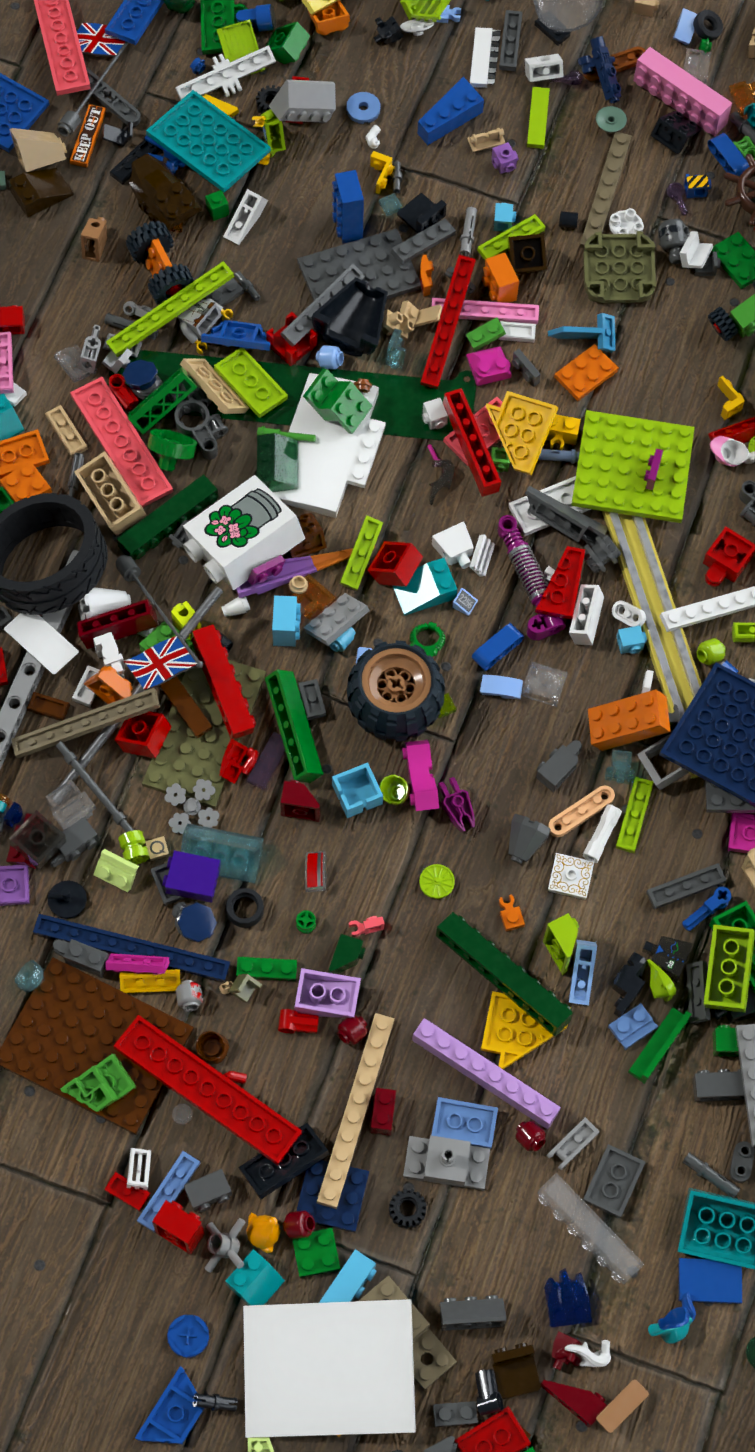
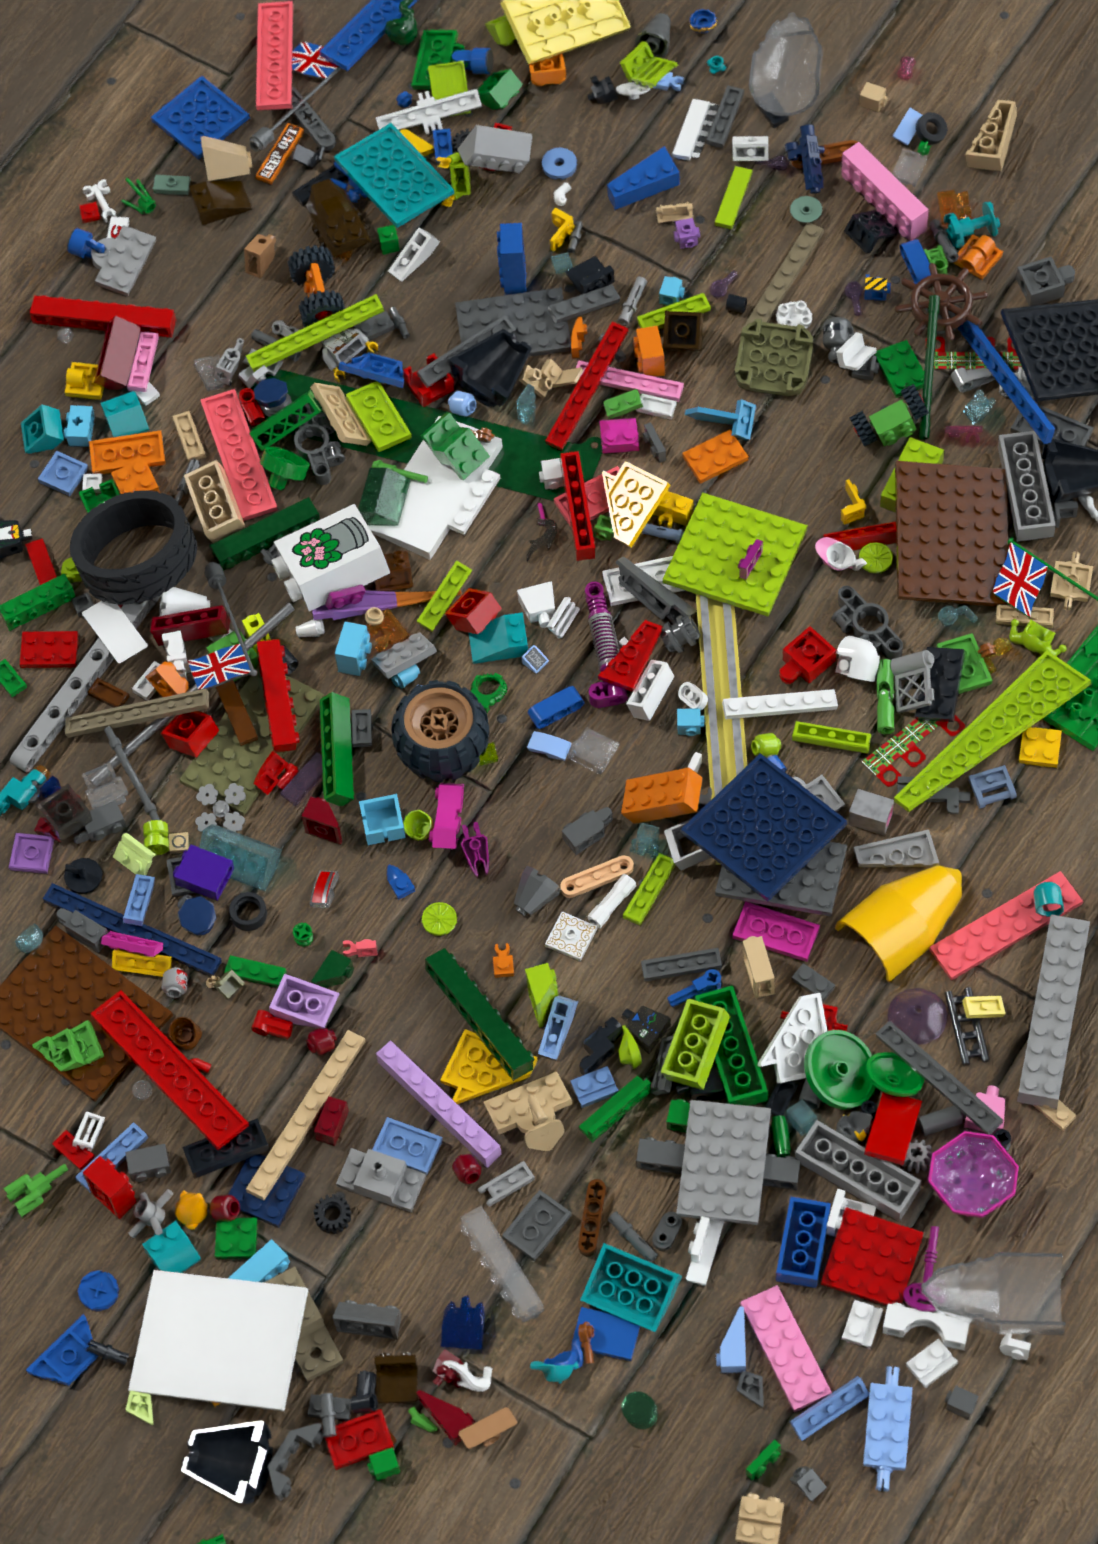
camera: 20 degrees right, 5 degrees down
(97, 1241) = (33, 1188): none -> bright green plant
(132, 916) = (139, 900): none -> medium blue plate
(246, 105) = (442, 143): none -> blue plate
(387, 850) = (399, 882): none -> blue plate
(458, 1425) = (327, 1415): none -> dark grey pin
(547, 207) = (719, 288): none -> clear purple plate
(550, 1409) = (421, 1420): none -> bright green bar
(576, 1058) = (532, 1106): none -> tan plate
(662, 1162) = (589, 1217): none -> reddish brown beam
(693, 1286) = (586, 1332): none -> dark orange plate

